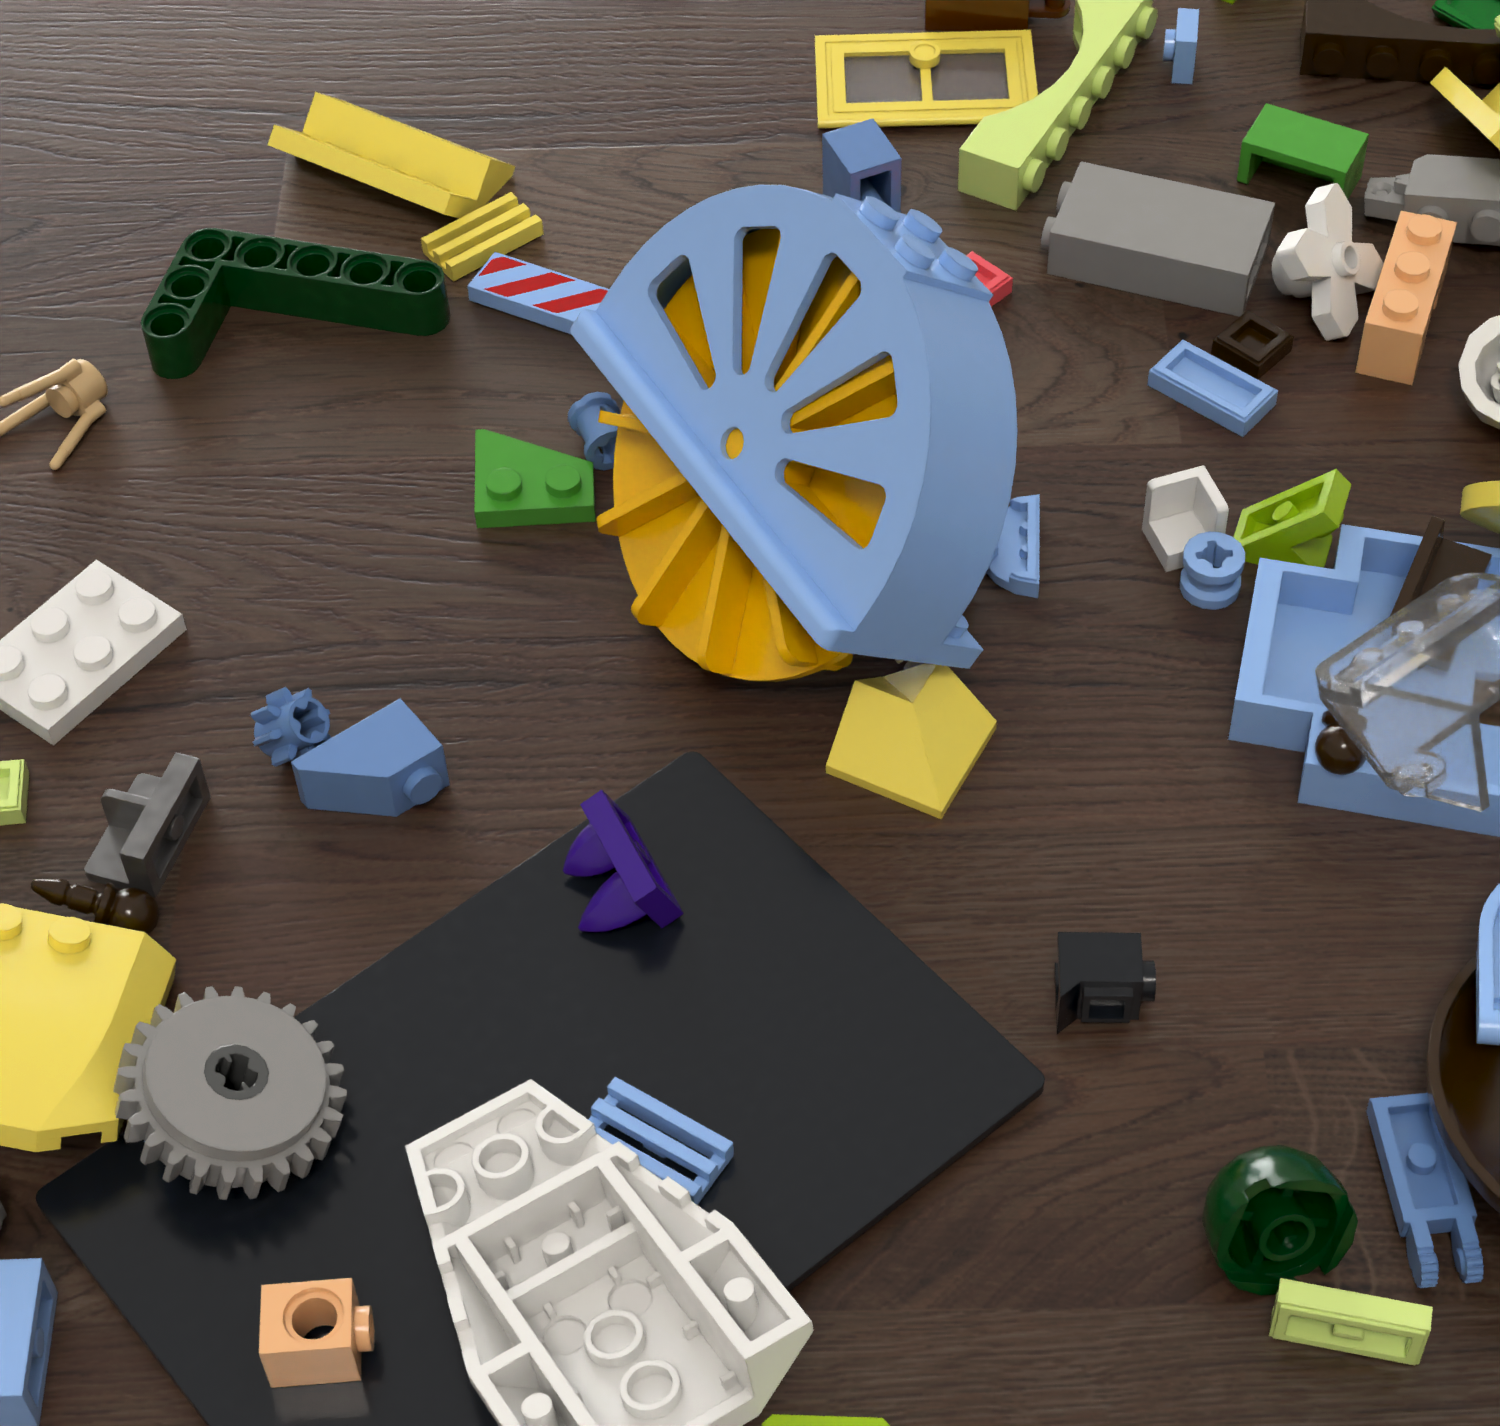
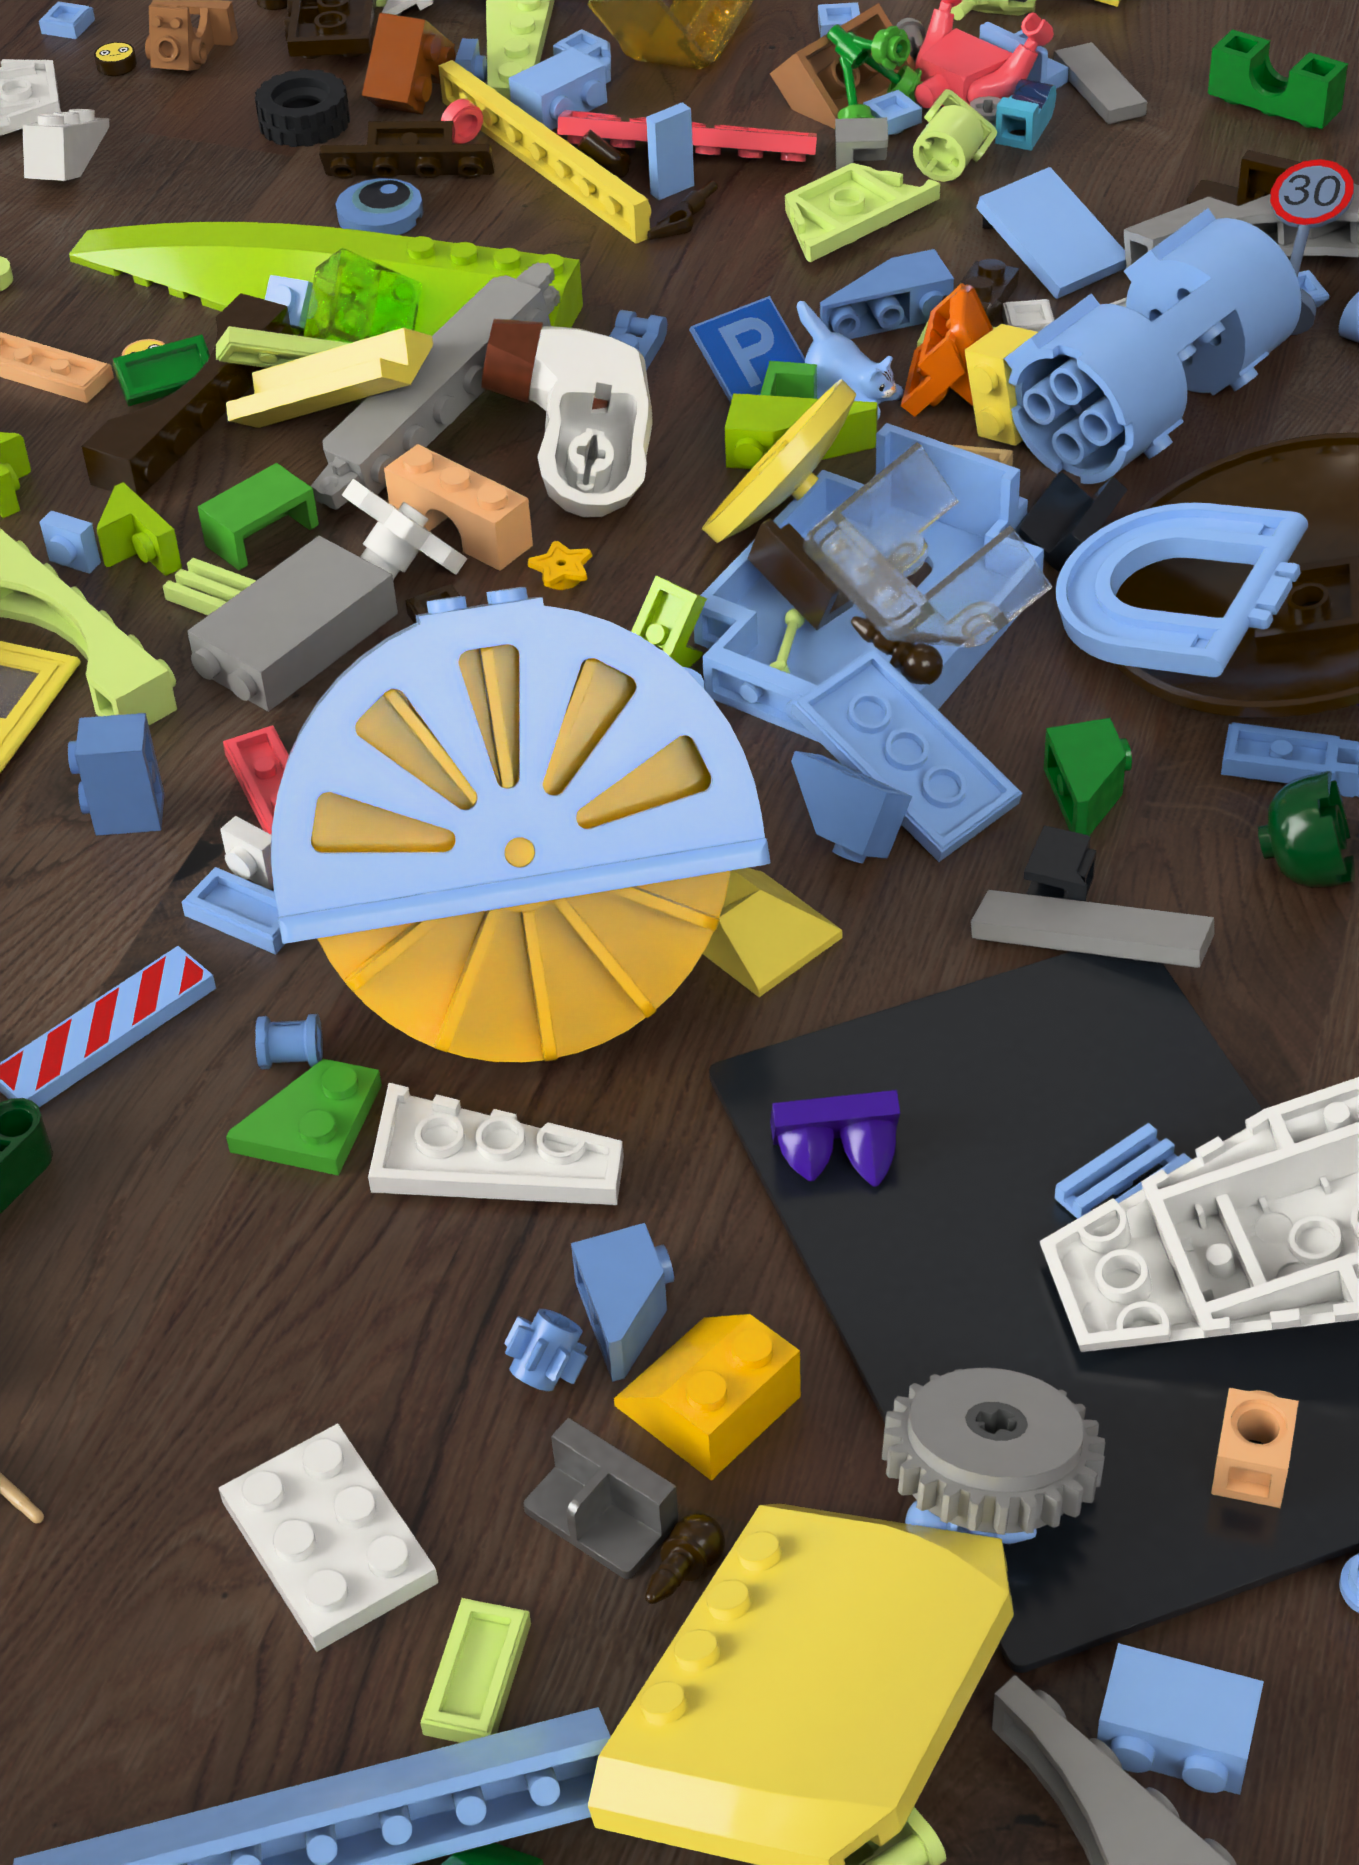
camera: 70 degrees left, 5 degrees down
(286, 871) = (715, 1390): none -> yellow slope
(519, 612) = (470, 1154): none -> white wing
(1022, 1032) = (1093, 928): none -> light grey tile
(1099, 750) = (850, 807): none -> medium blue slope
(1188, 151) = (208, 579): none -> yellowish green tile
(1208, 783) = (896, 736): none -> light blue tile
(1226, 81) = (135, 528): none -> lime slope
(1276, 967) = (1086, 770): none -> green slope
(1300, 638) = (794, 621): none -> yellowish green hinge
(1373, 425) = (561, 566): none -> yellow plate

